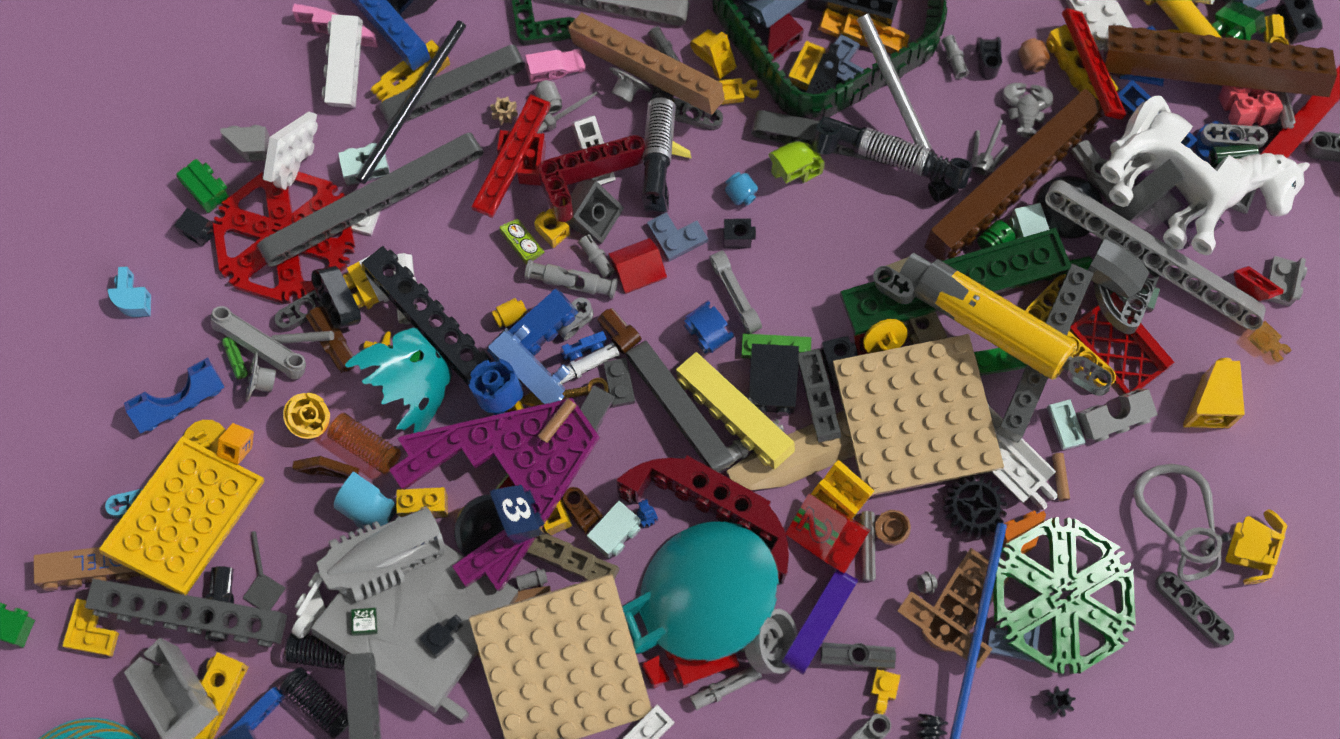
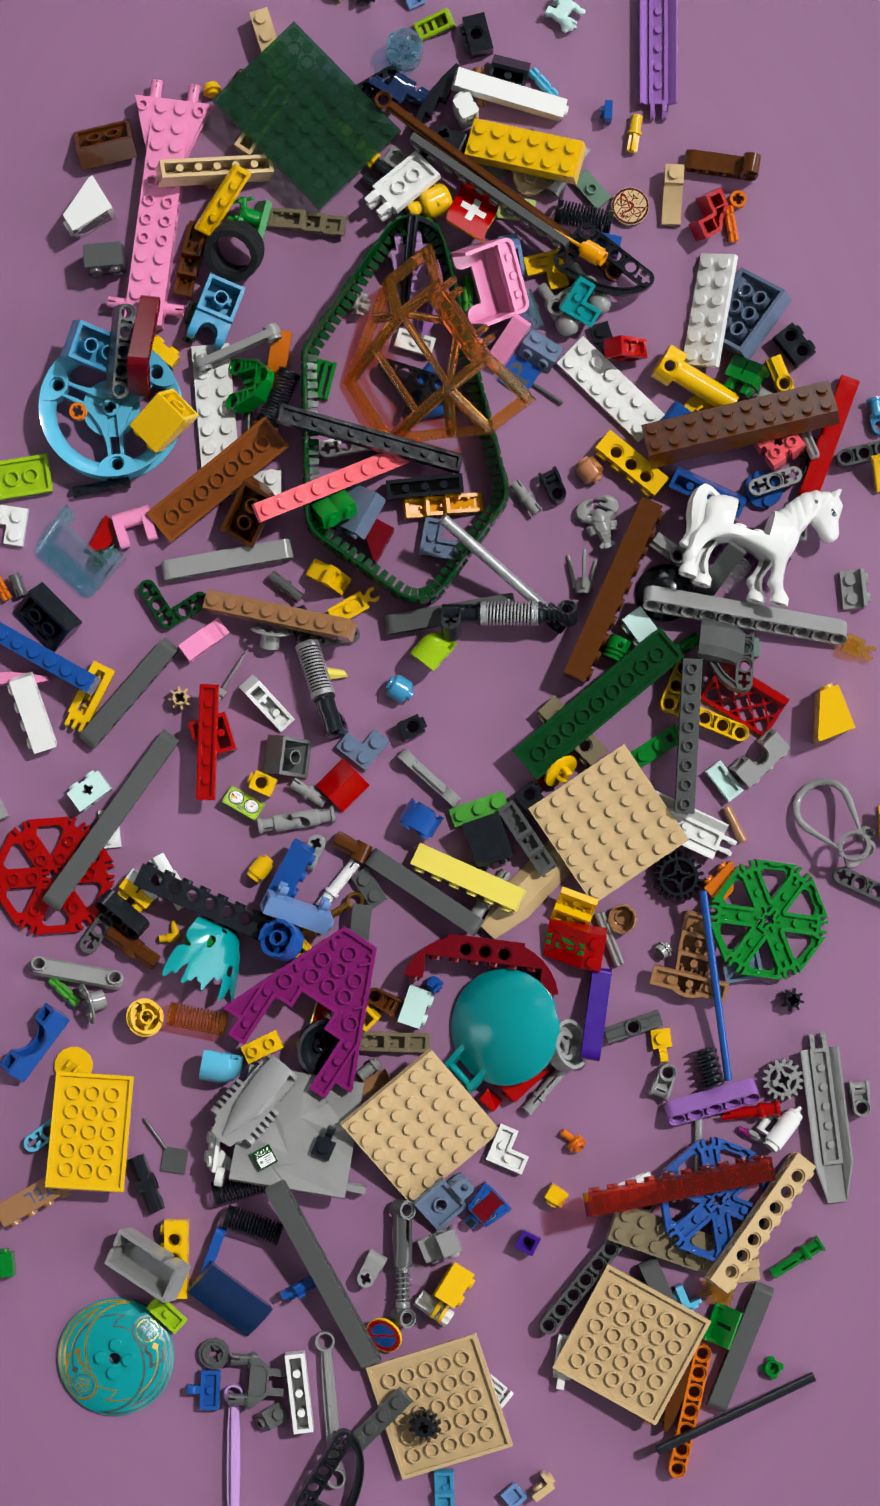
camera: 20 degrees left, 15 degrees up
(84, 634) = (58, 1247): yellow plate -> none
(103, 593) = (194, 1183): dark grey brick -> none
(235, 443) = (100, 1059): light orange brick -> none
(288, 149) = (31, 810): white plate -> none
(304, 337) = (110, 956): light grey bar -> none
(324, 467) = (177, 1051): reddish brown tile -> none
(410, 102) = (105, 725): black piece -> none
(518, 513) = (343, 1034): dark blue slope -> none
(547, 91) = (211, 671): light grey brick -> none
(557, 420) = (340, 949): medium nougat piece -> none
(584, 165) = (269, 729): dark red beam -> none
(591, 343) = (330, 872): blue wing -> none
(806, 65) = (408, 557): yellow piece -> none
(823, 74) = (427, 561): black piece -> none
(991, 318) = (635, 733): piece -> none
(1094, 64) = (640, 467): red tile -> none
(1217, 154) = (779, 500): dark green axle -> none
(1255, 284) = (832, 604): red slope -> none

